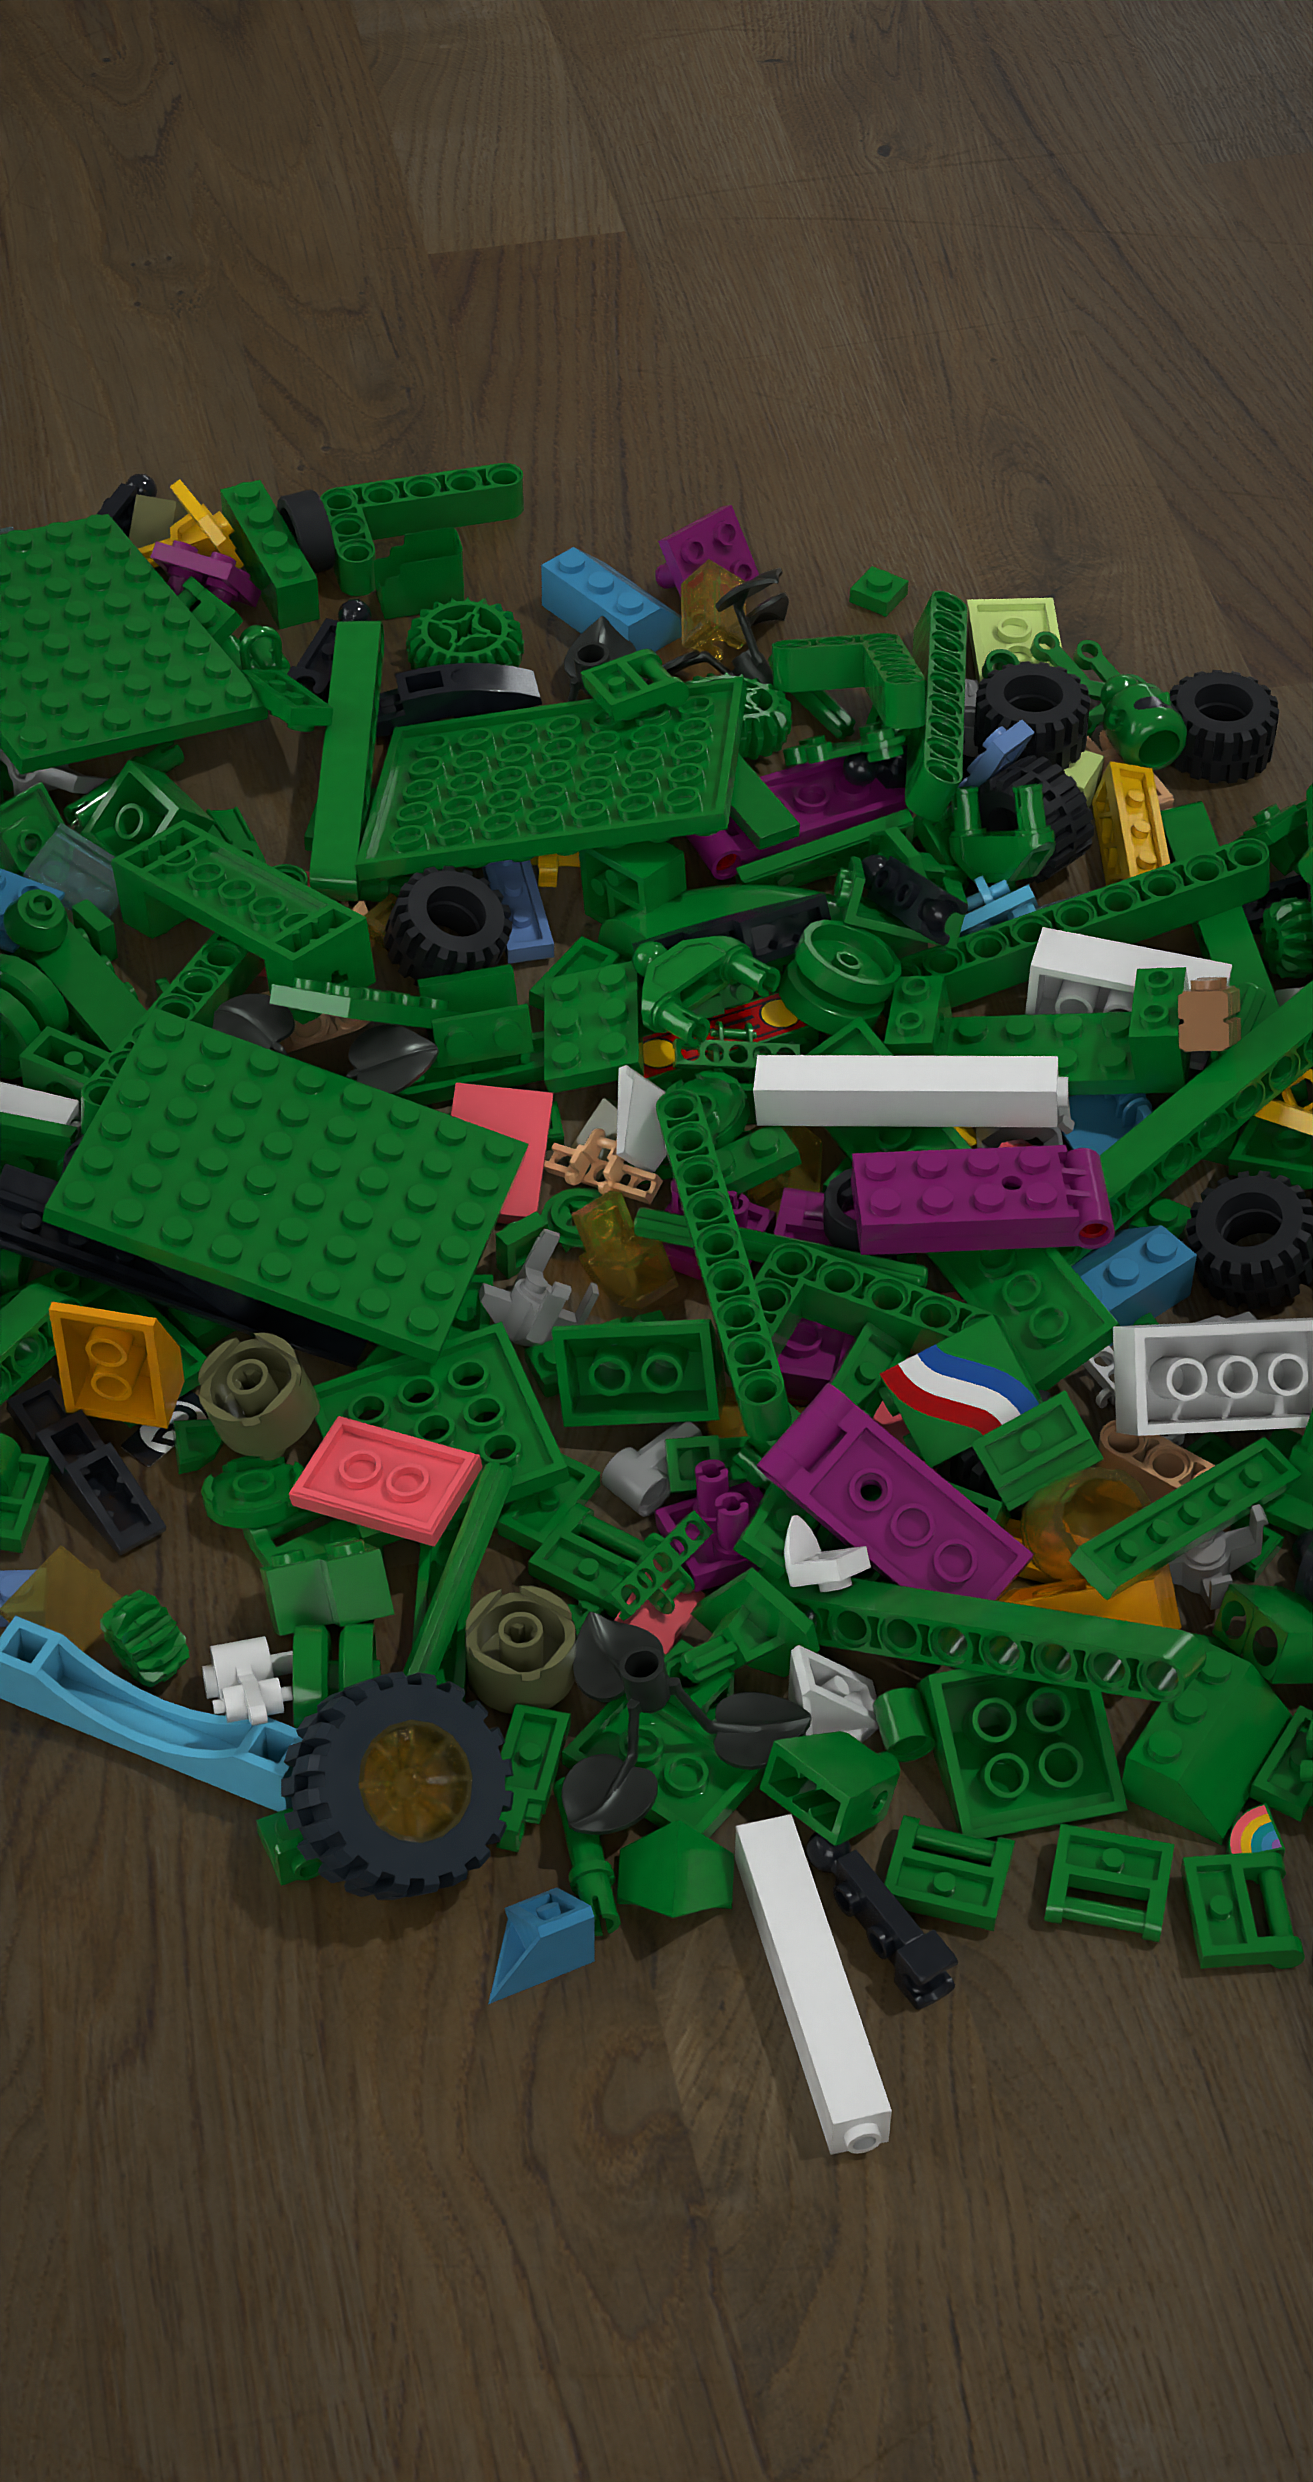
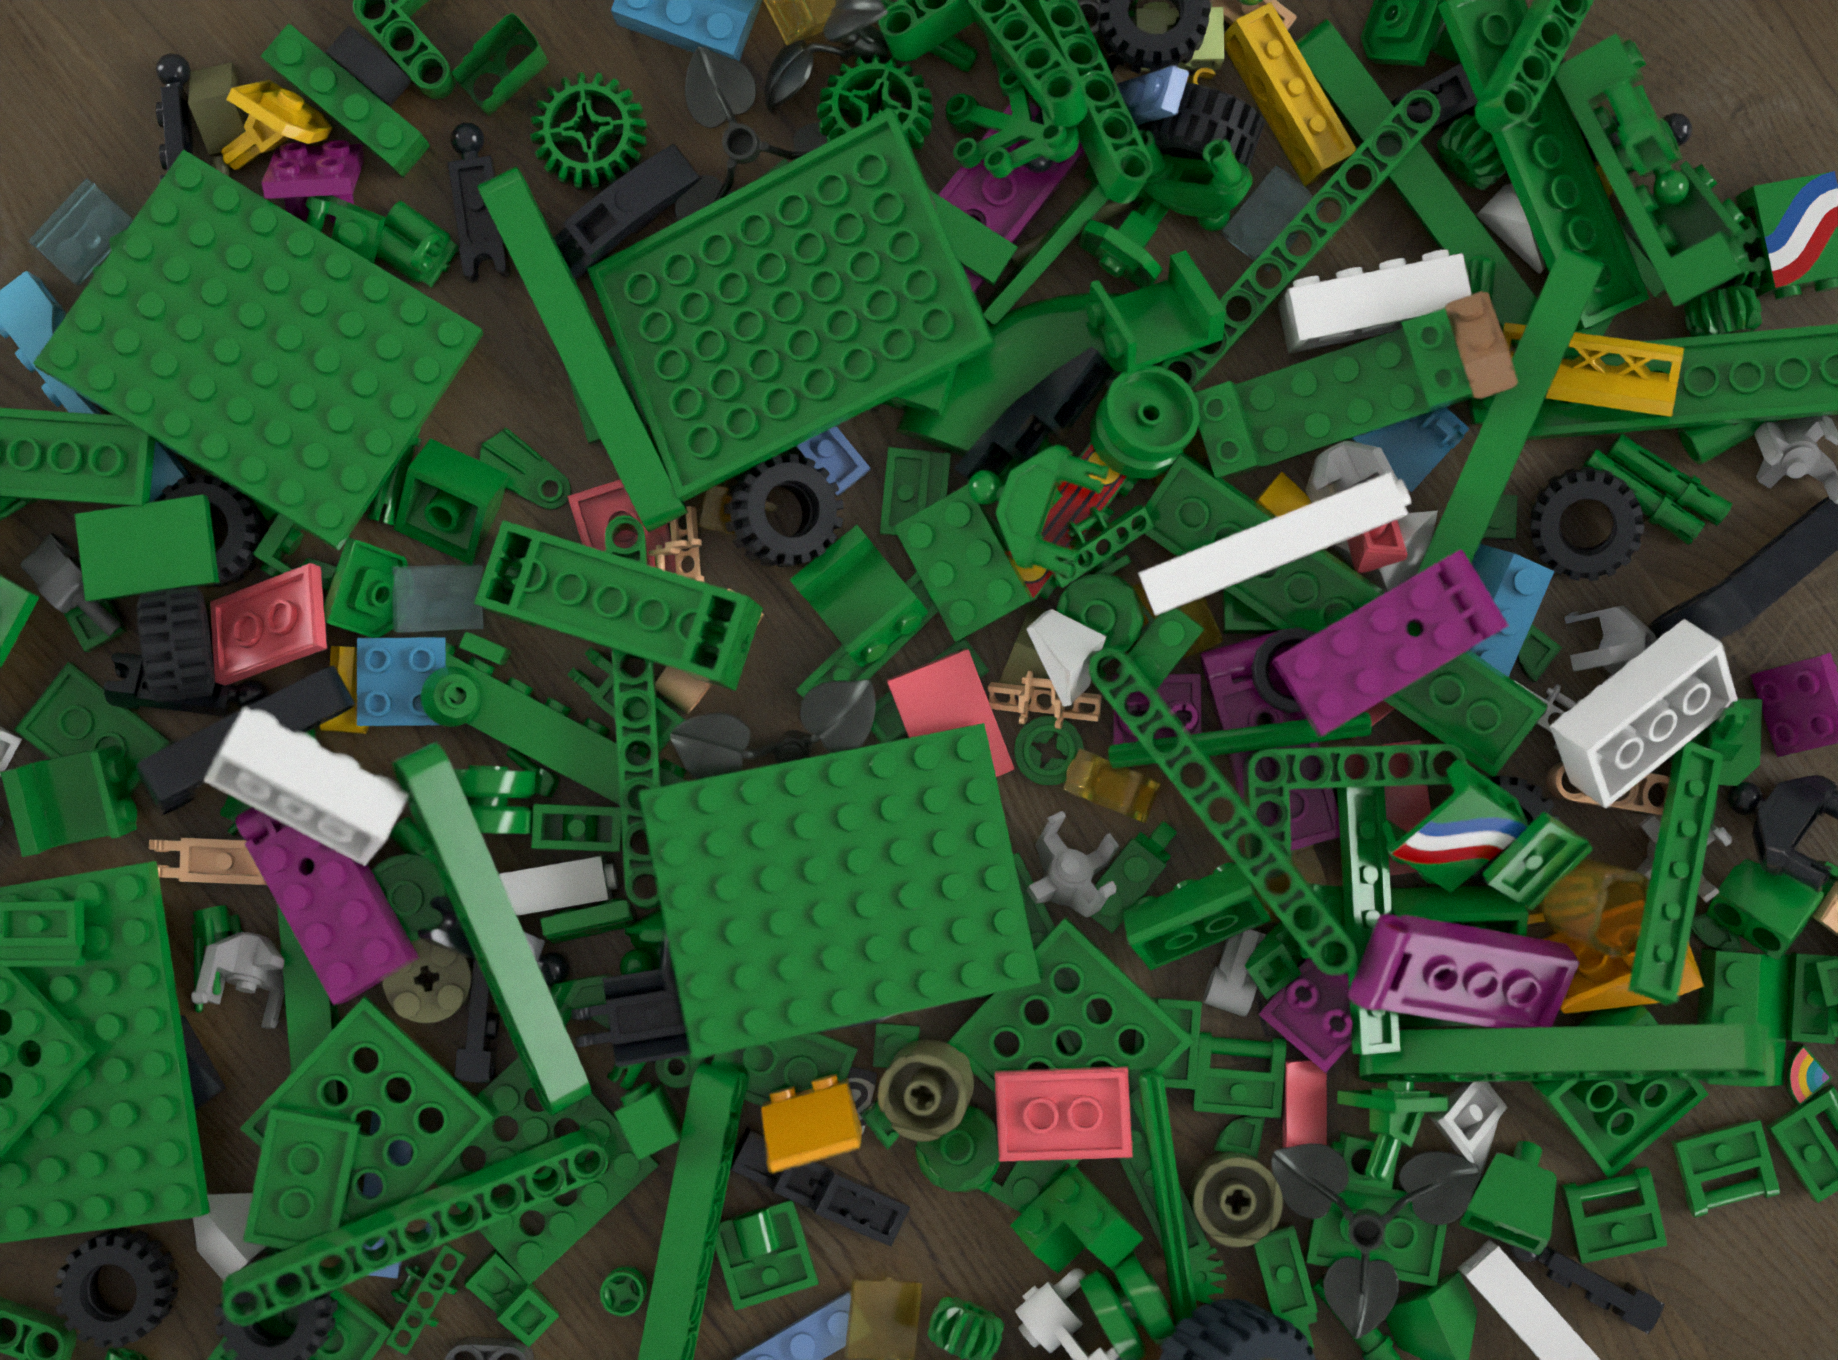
camera: 25 degrees left, 40 degrees up
(289, 700) = (494, 315): green plate -> none
(360, 1003) = (788, 667): green plate -> none
(516, 1242) = (1019, 806): green plate -> none
(625, 694) = (790, 176): green plate -> none
(672, 1570) = (1308, 1101): green piece -> none
(810, 1566) = (1431, 1045): white plate -> none
(904, 1724) = (1528, 1112): green beam -> none
(911, 896) = (1168, 316): black plate -> none
(996, 911) = (1218, 245): medium azure hips -> none

